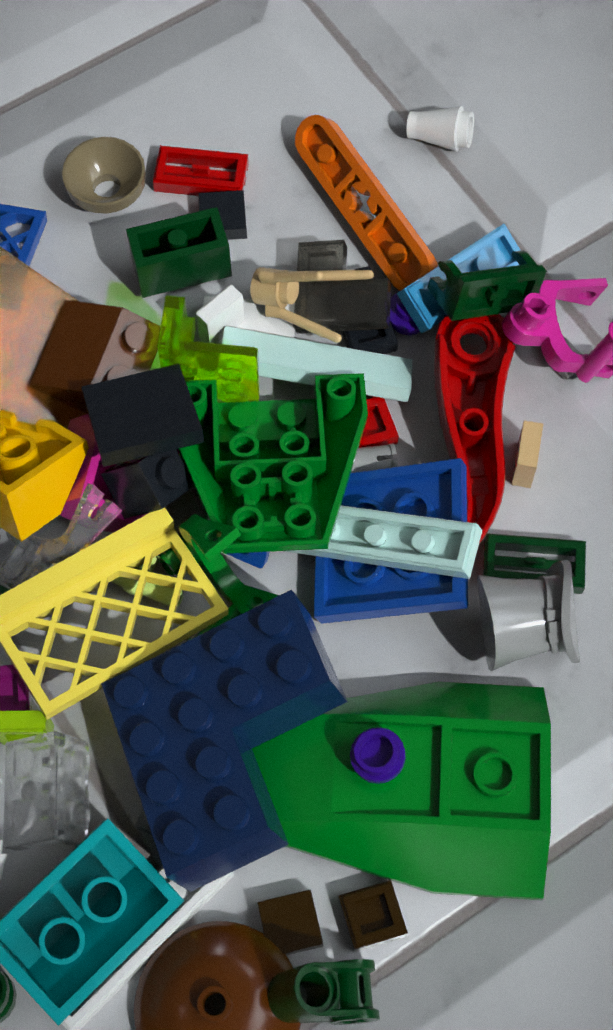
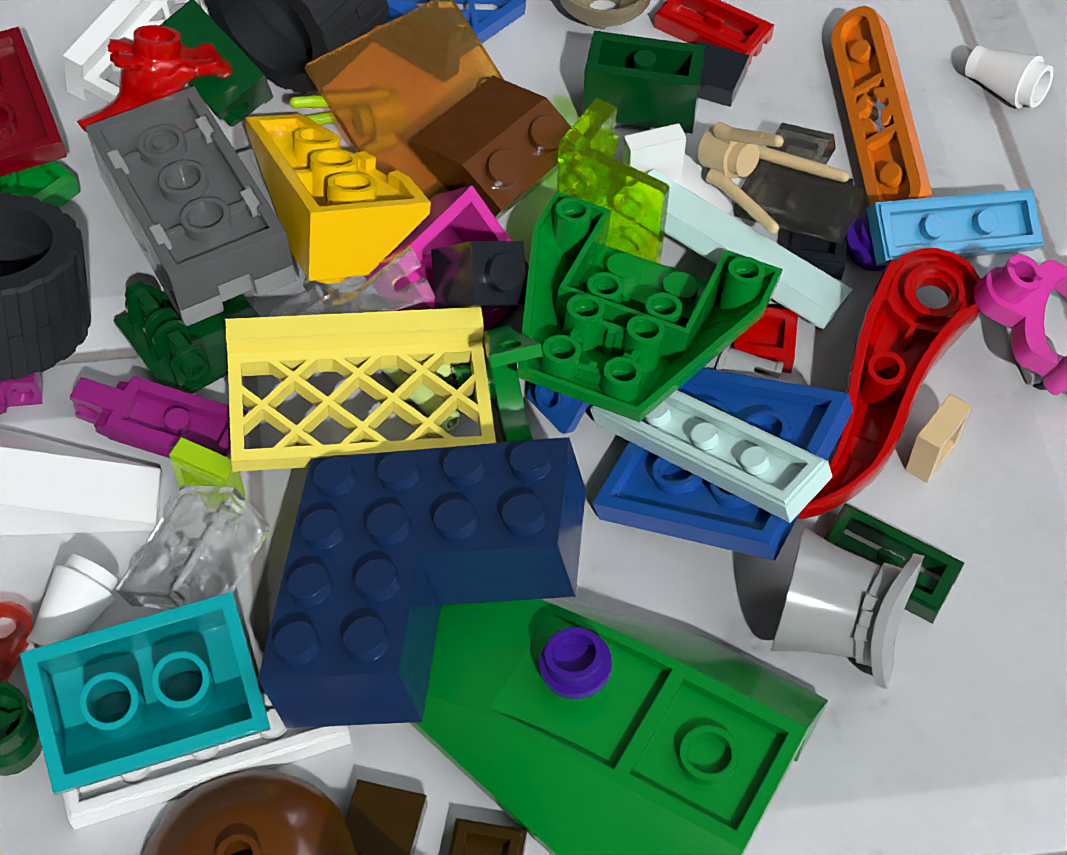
camera: 25 degrees right, 10 degrees down
(142, 415) = (503, 201): black tile -> none
(487, 290) = (970, 235): dark green hinge -> none

